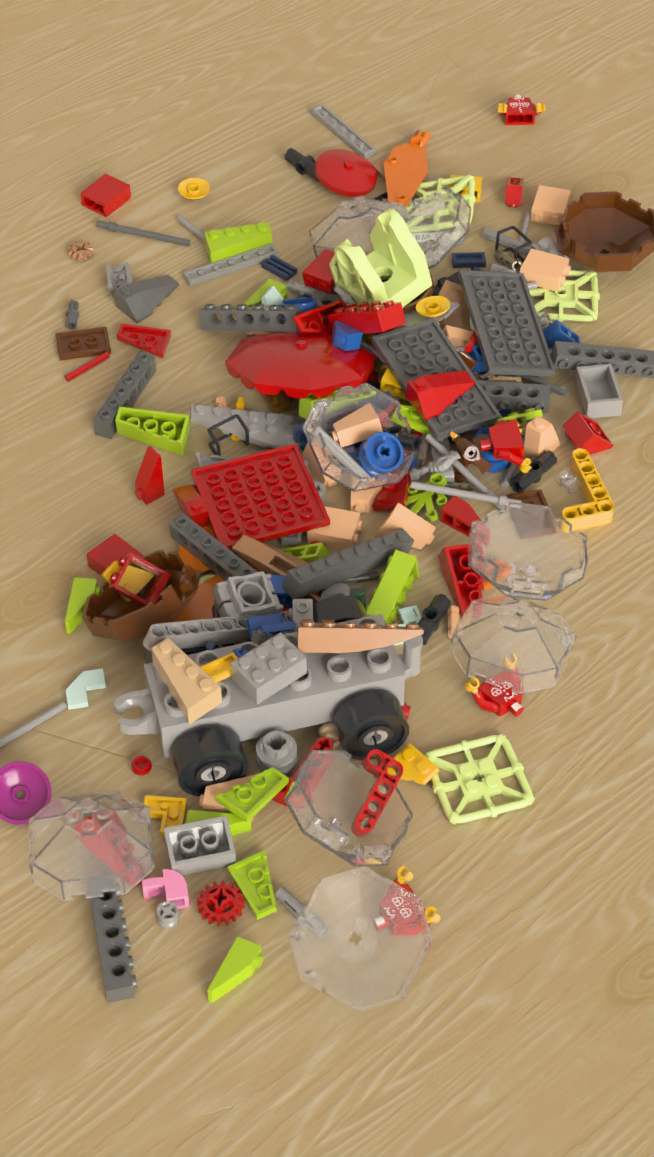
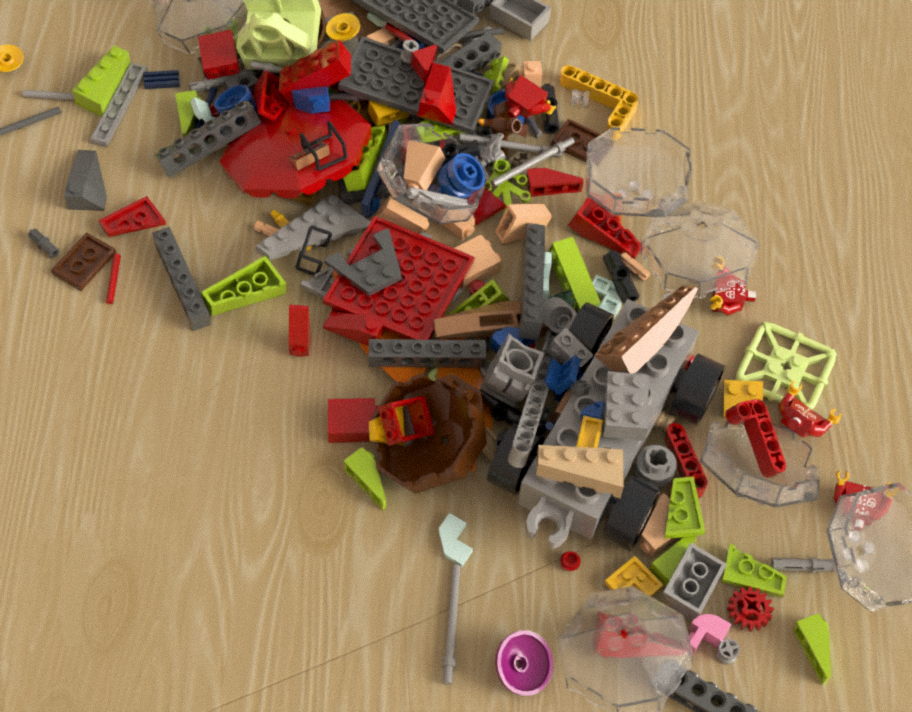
camera: 50 degrees left, 10 degrees up
(118, 277) = (46, 181): light grey bracket -> none
(248, 476) = (373, 271): none -> dark grey wing
(285, 364) = (305, 156): none -> medium nougat slope
(289, 347) = (305, 144): none -> black piece
(375, 568) = (547, 266): none -> light aqua tile
(434, 815) = (802, 418): none -> red torso
(453, 346) = (409, 46): none -> light grey bush
(458, 361) = (423, 60): none -> red slope
(586, 434) = (548, 53): red slope -> none

